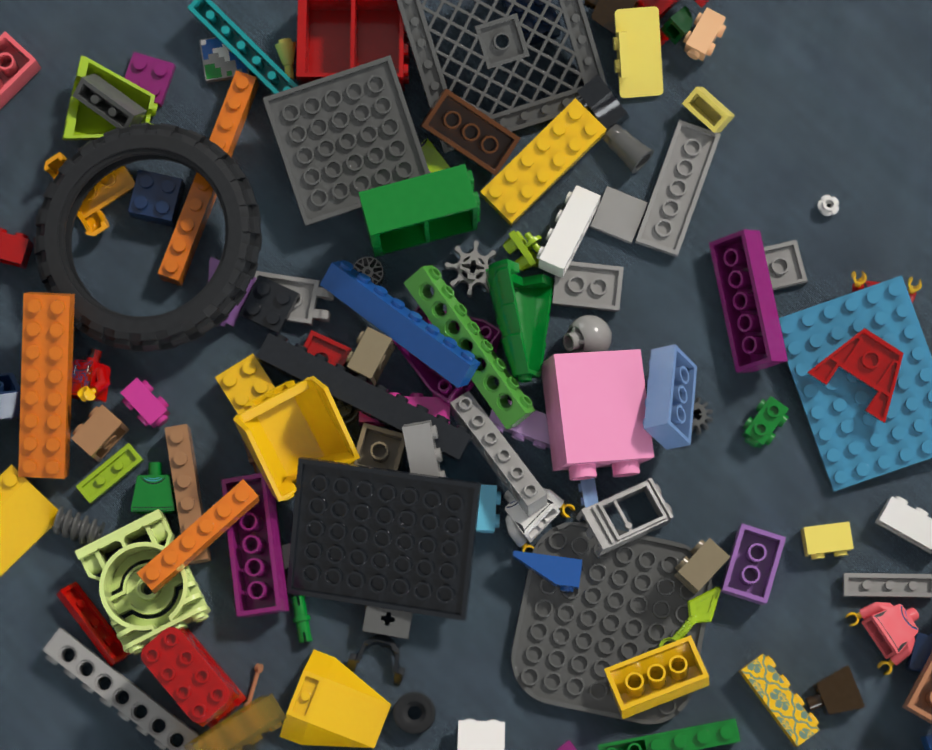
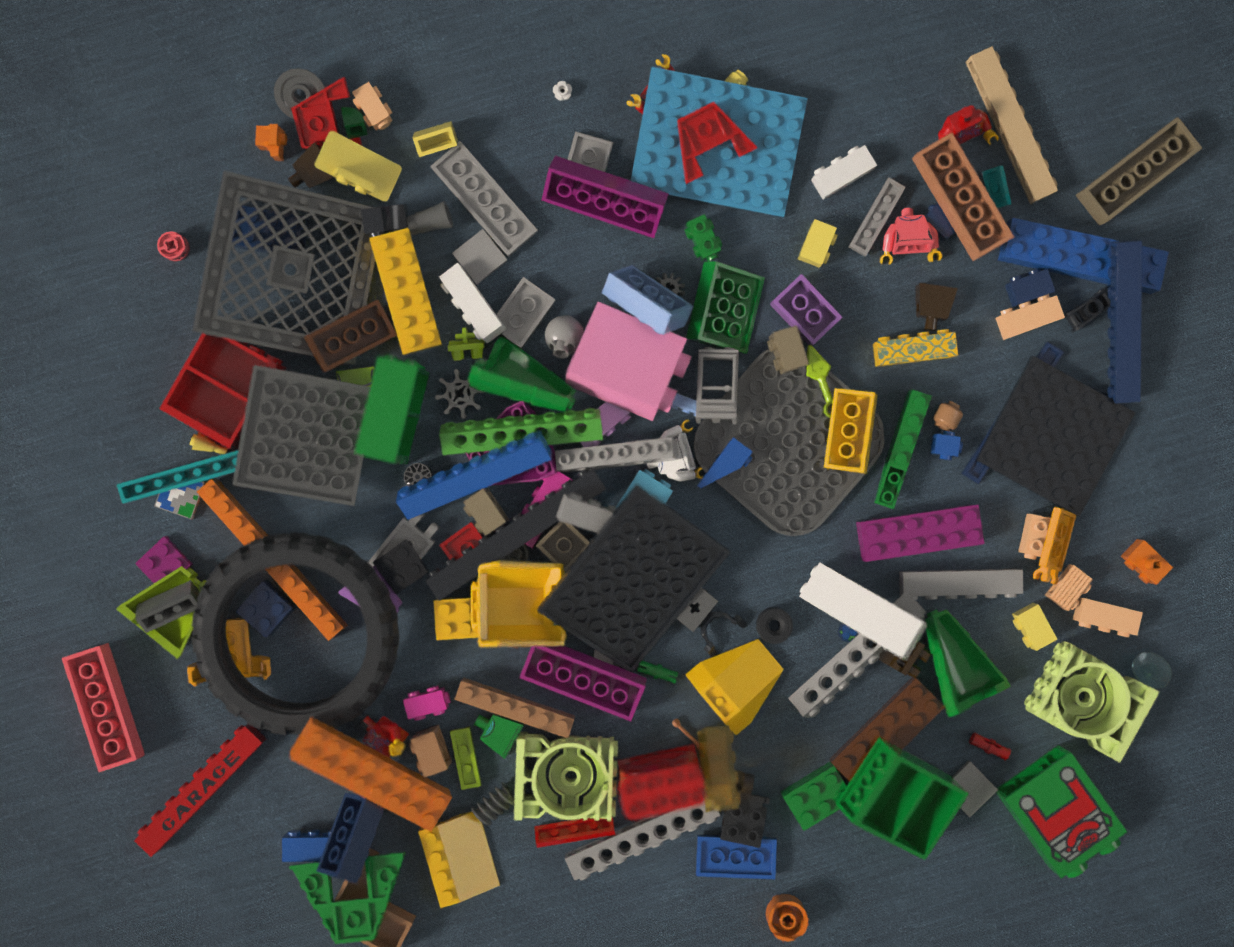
camera: 65 degrees left, 10 degrees up
(198, 536) = (556, 721): orange brick -> none
(709, 482) = (725, 307): none -> green slope

